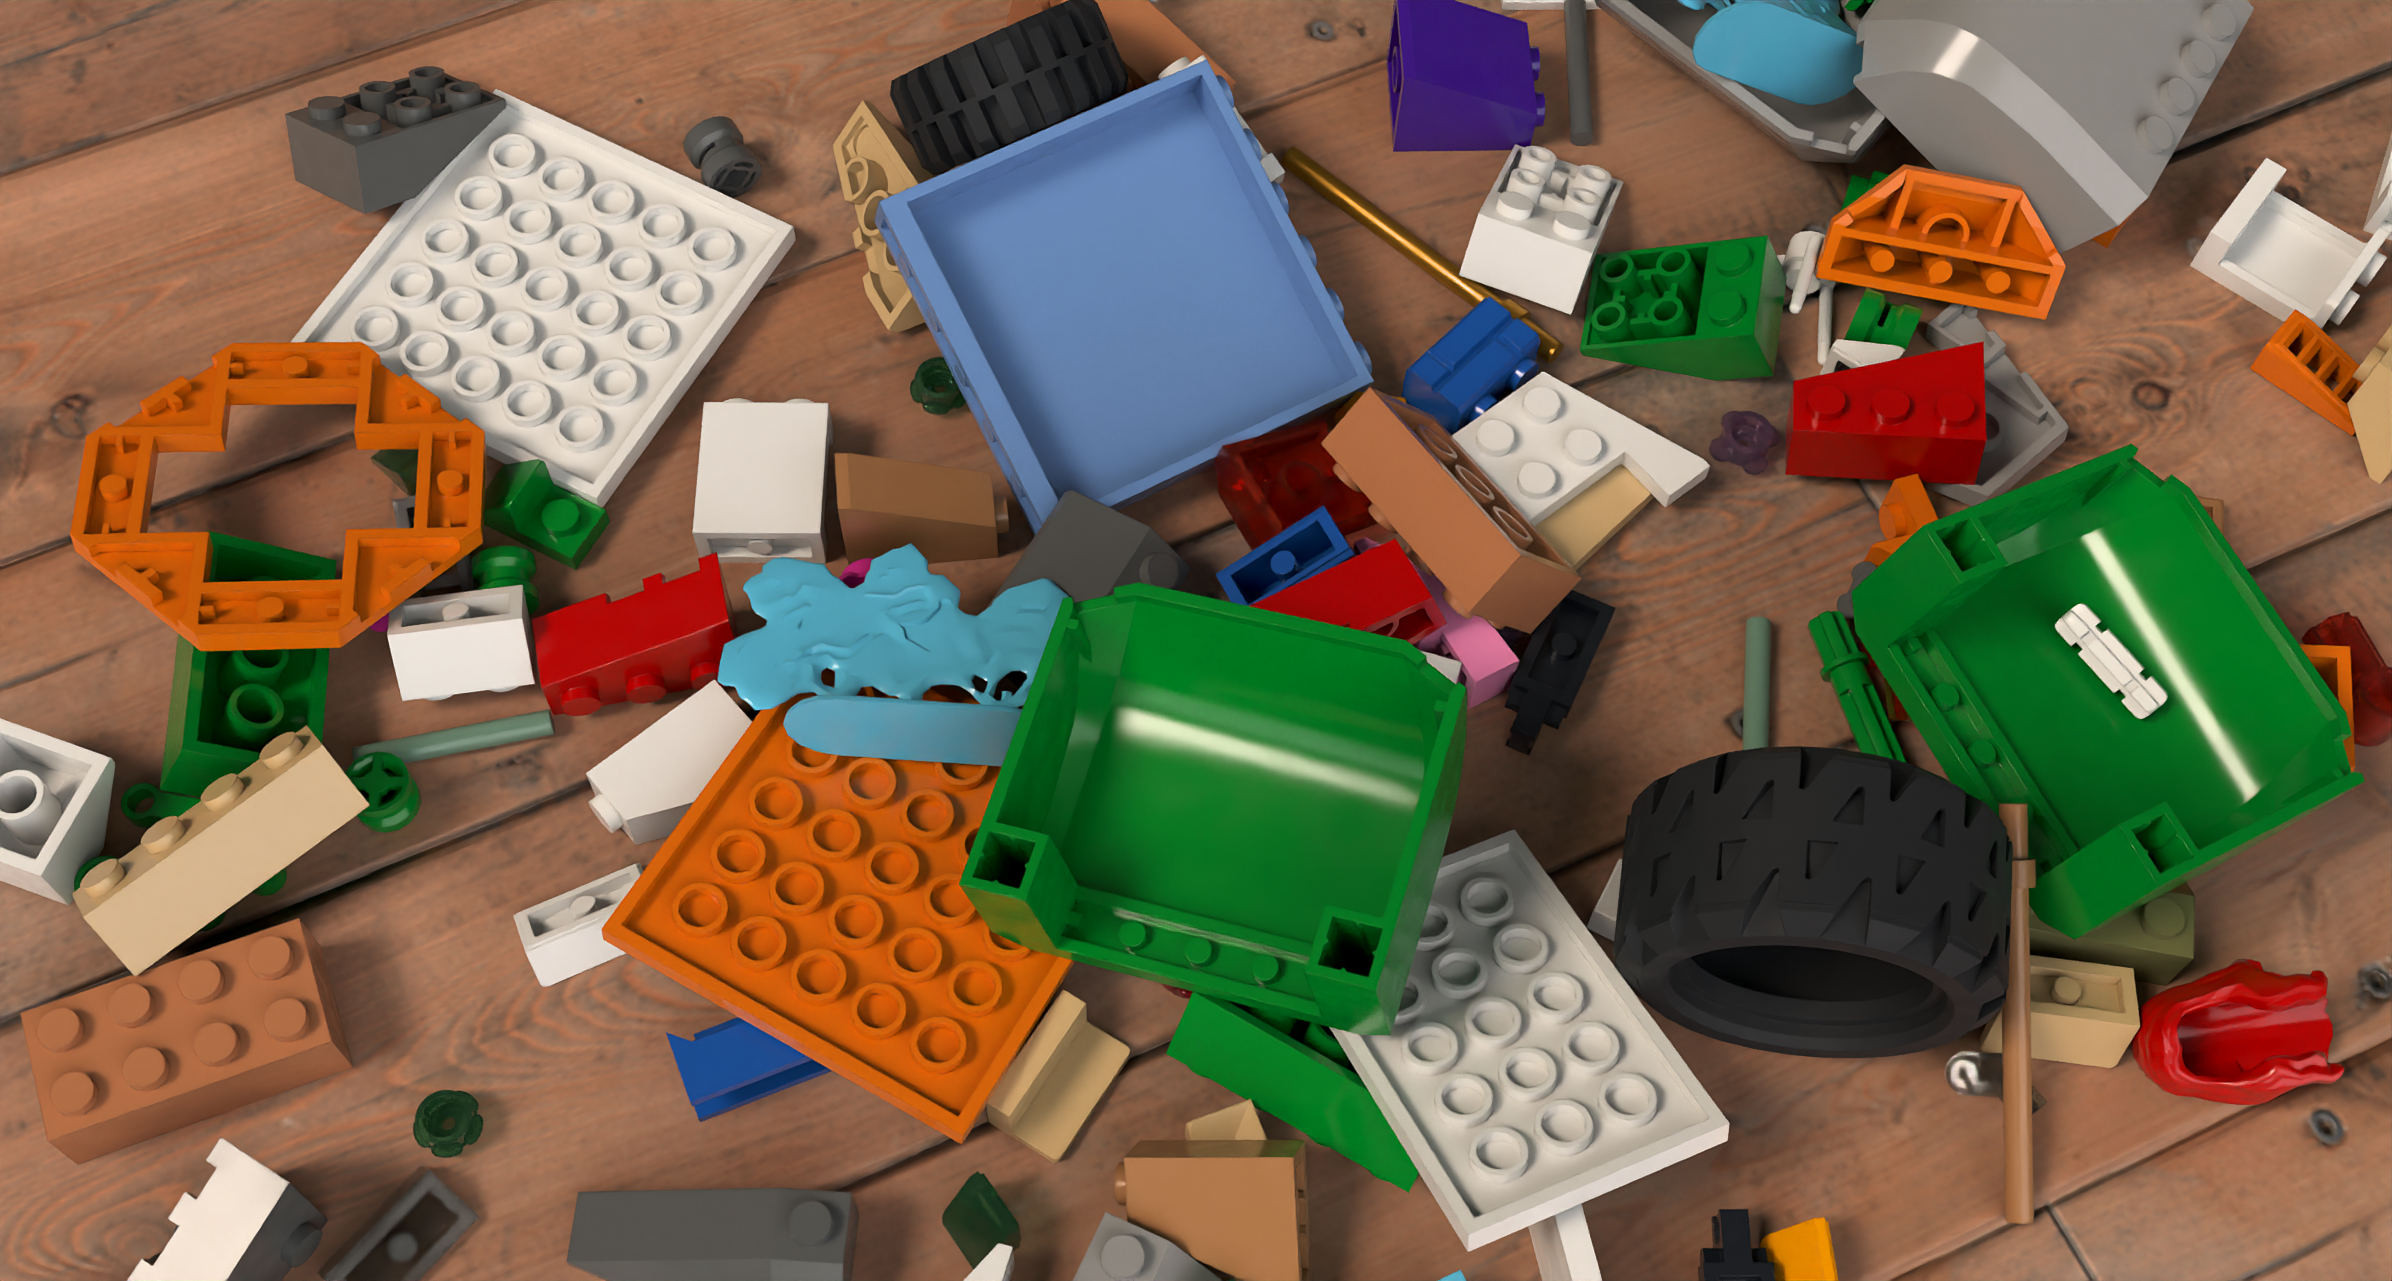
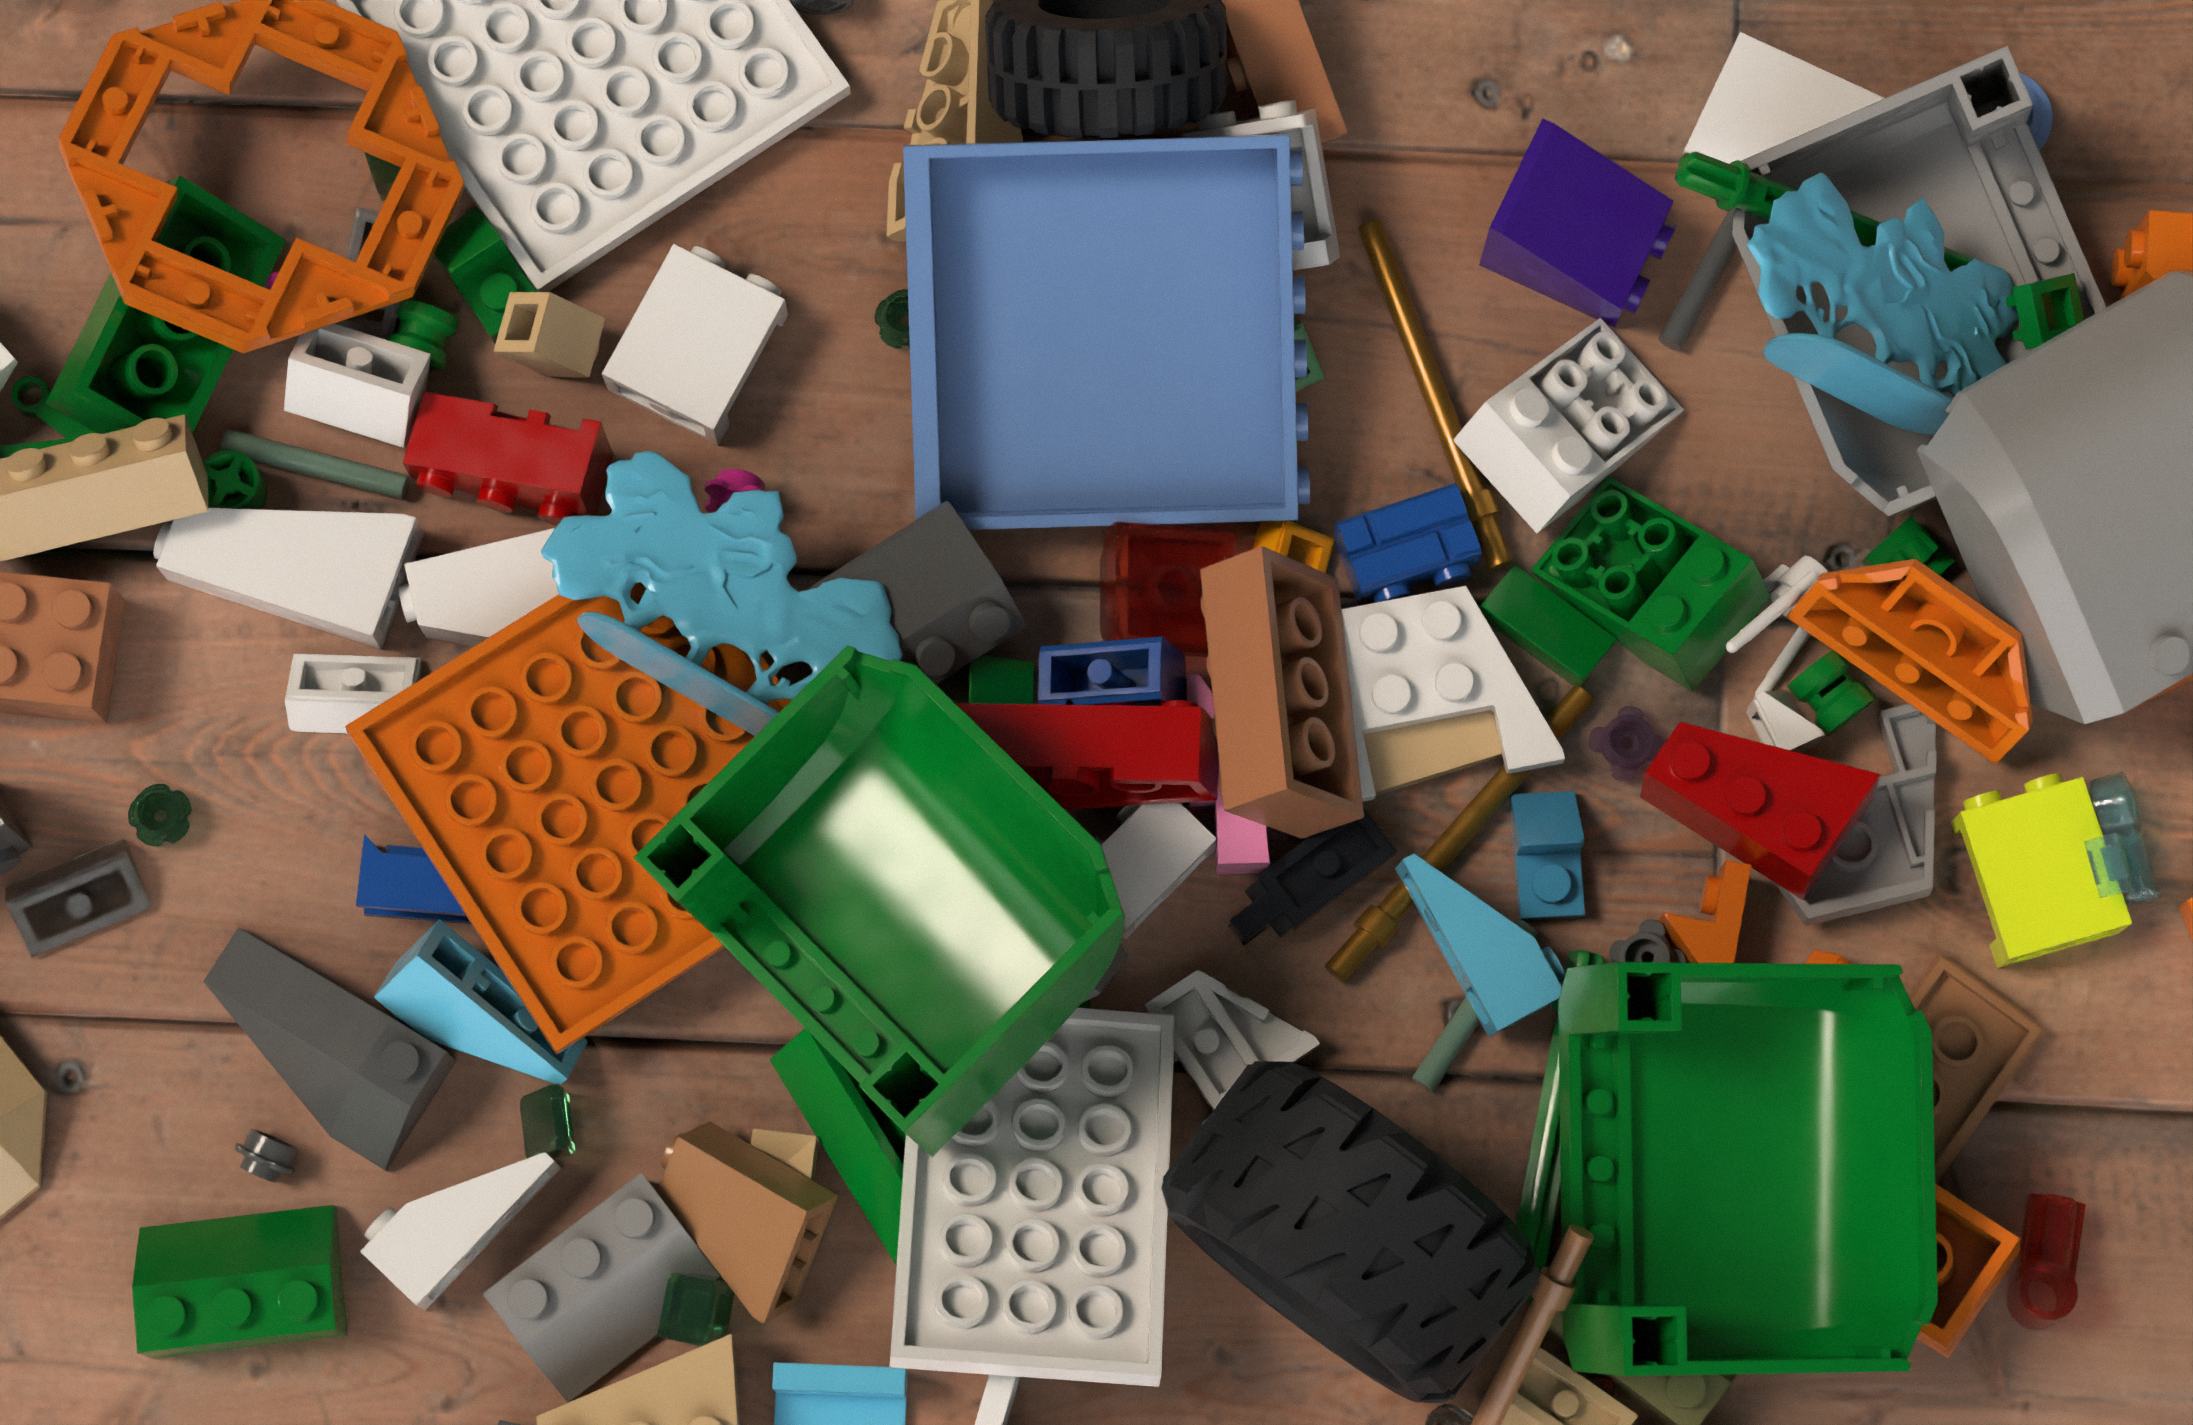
camera: 30 degrees right, 15 degrees up
(475, 831) = (299, 565): none -> white slope
(626, 525) = (549, 334): none -> tan brick
(852, 1143) = (467, 1004): none -> medium azure slope
(902, 502) = (812, 447): medium nougat slope -> none
(1057, 1080) = (673, 1033): tan panel -> none
(1568, 833) = (1224, 1033): none -> white wing
(1627, 385) = (1546, 626): none -> green slope
(1635, 676) = (1378, 924): none -> pearl gold bar
(1736, 558) = (1547, 856): none -> dark azure slope
(1744, 645) = (1489, 955): none -> medium azure slope
(2111, 661) = (1785, 1141): white axle -> none
(2139, 376) = (2037, 869): none -> neon yellow panel
(2171, 318) = (2120, 856): none -> clear light blue piece

